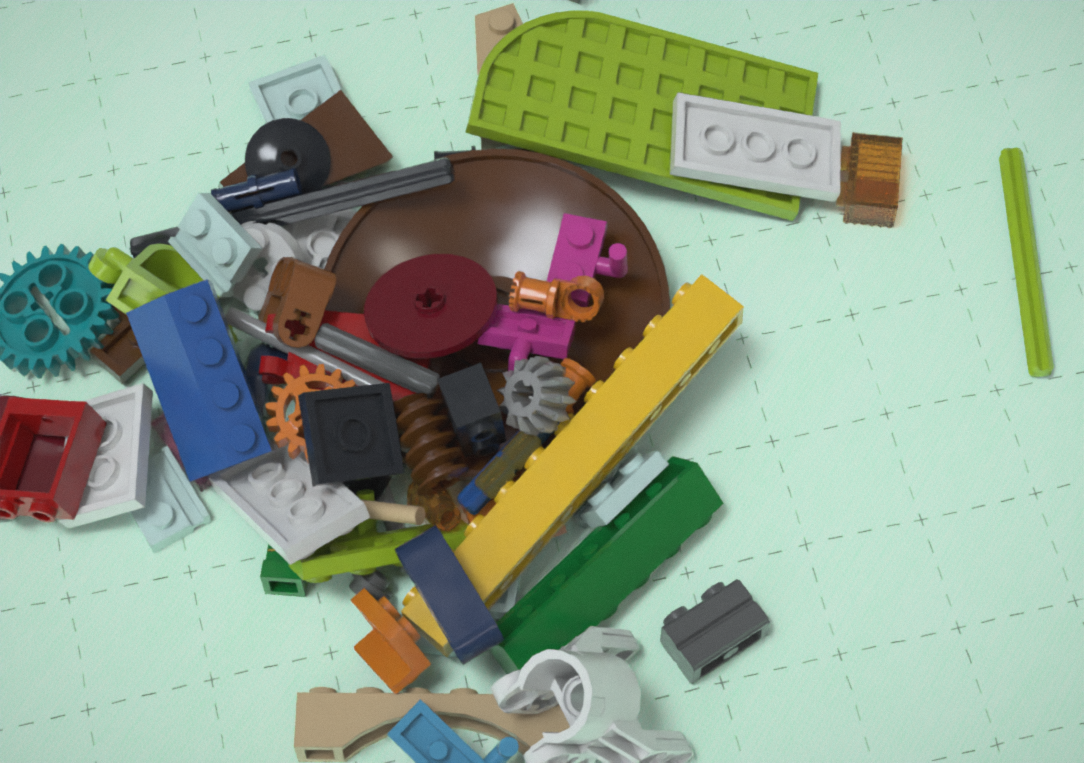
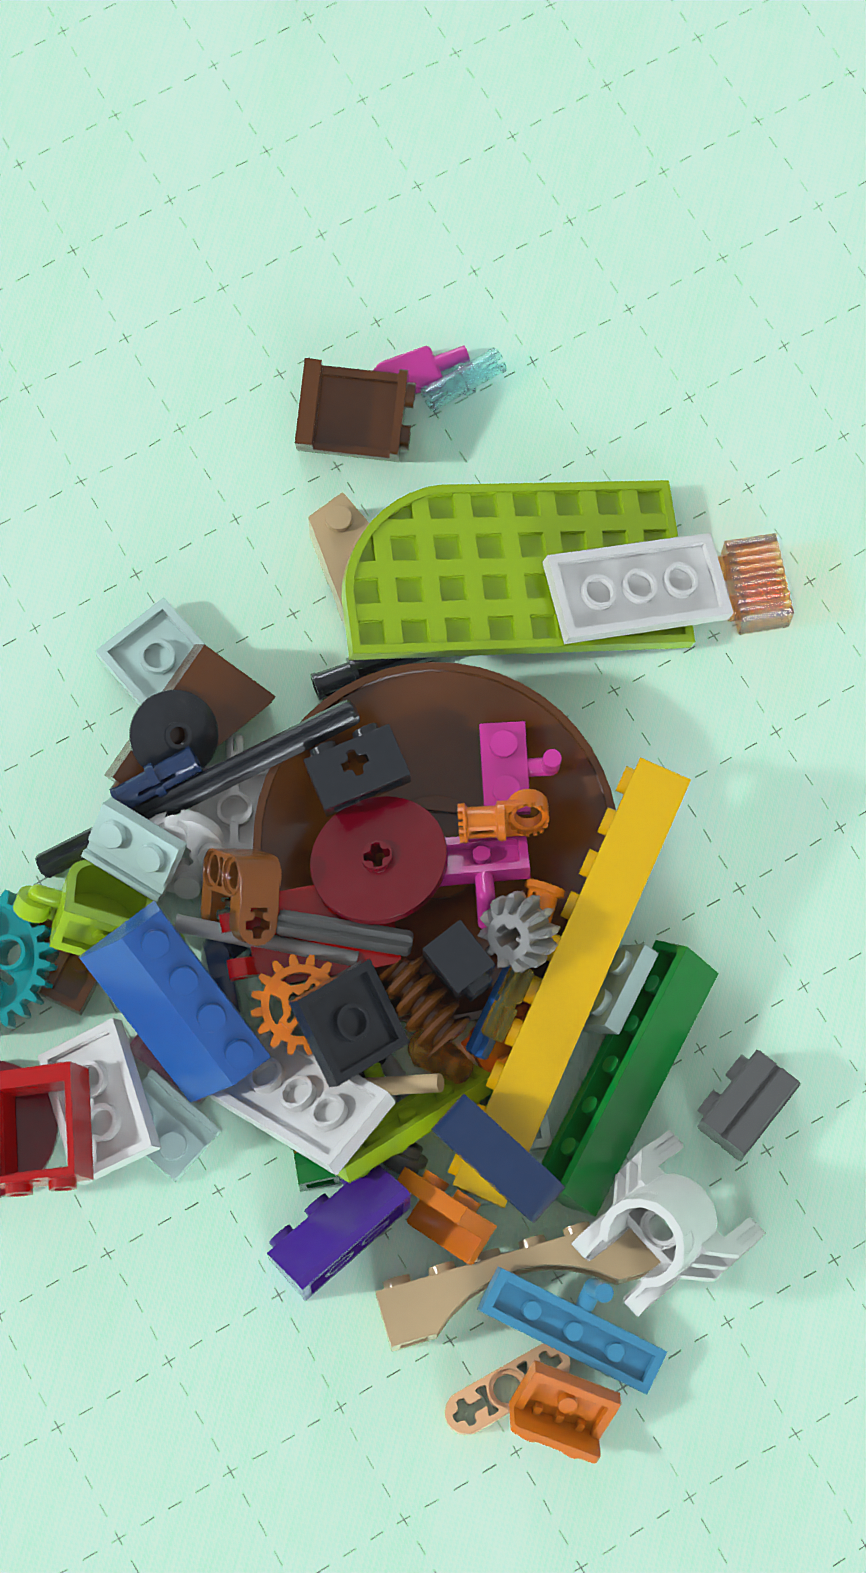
camera: 20 degrees left, 10 degrees up
(285, 632) = (337, 1230): none -> dark purple slope
(456, 234) = (381, 774): none -> black brick

